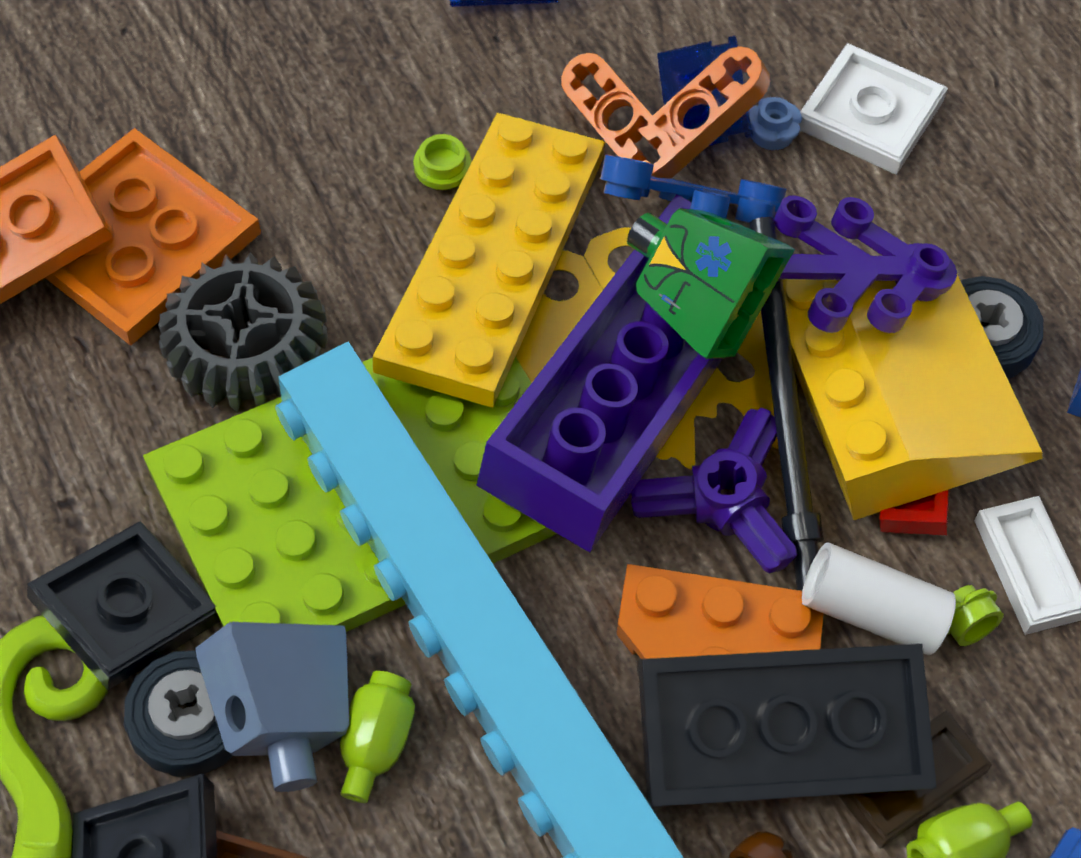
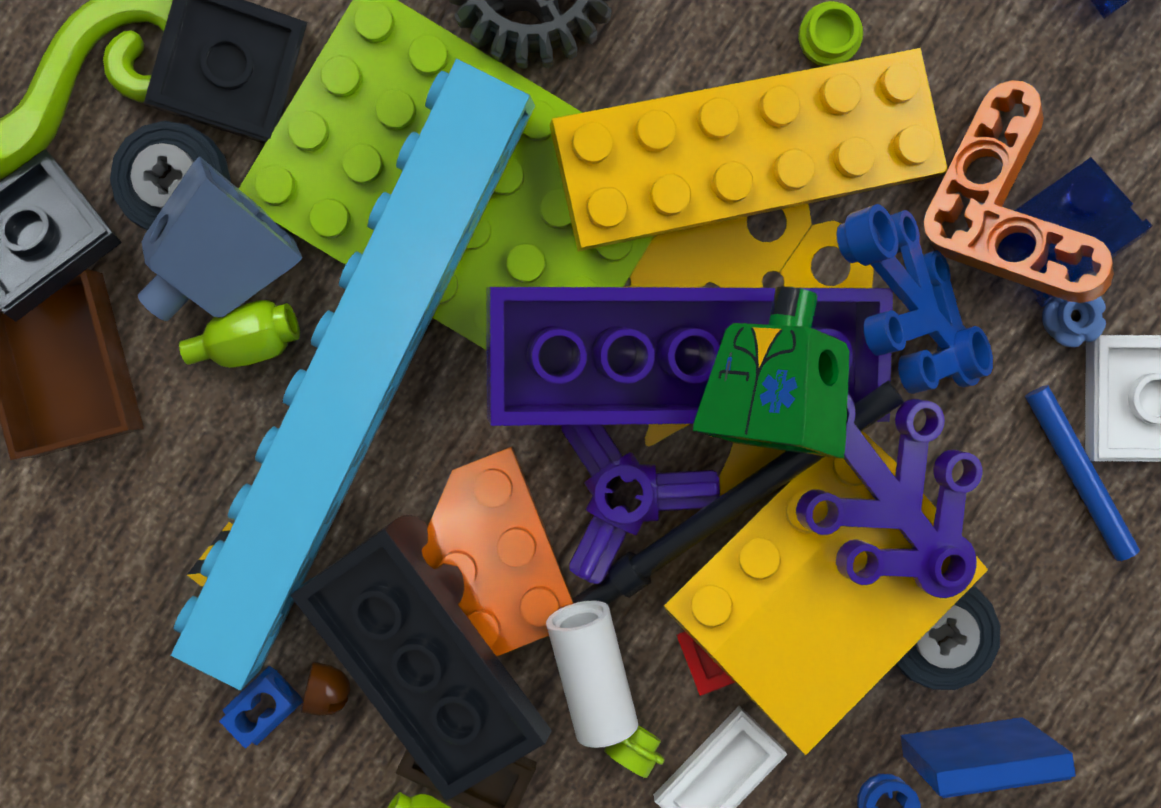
camera: 65 degrees right, 30 degrees up
(906, 177) = (1082, 473): none -> blue bar

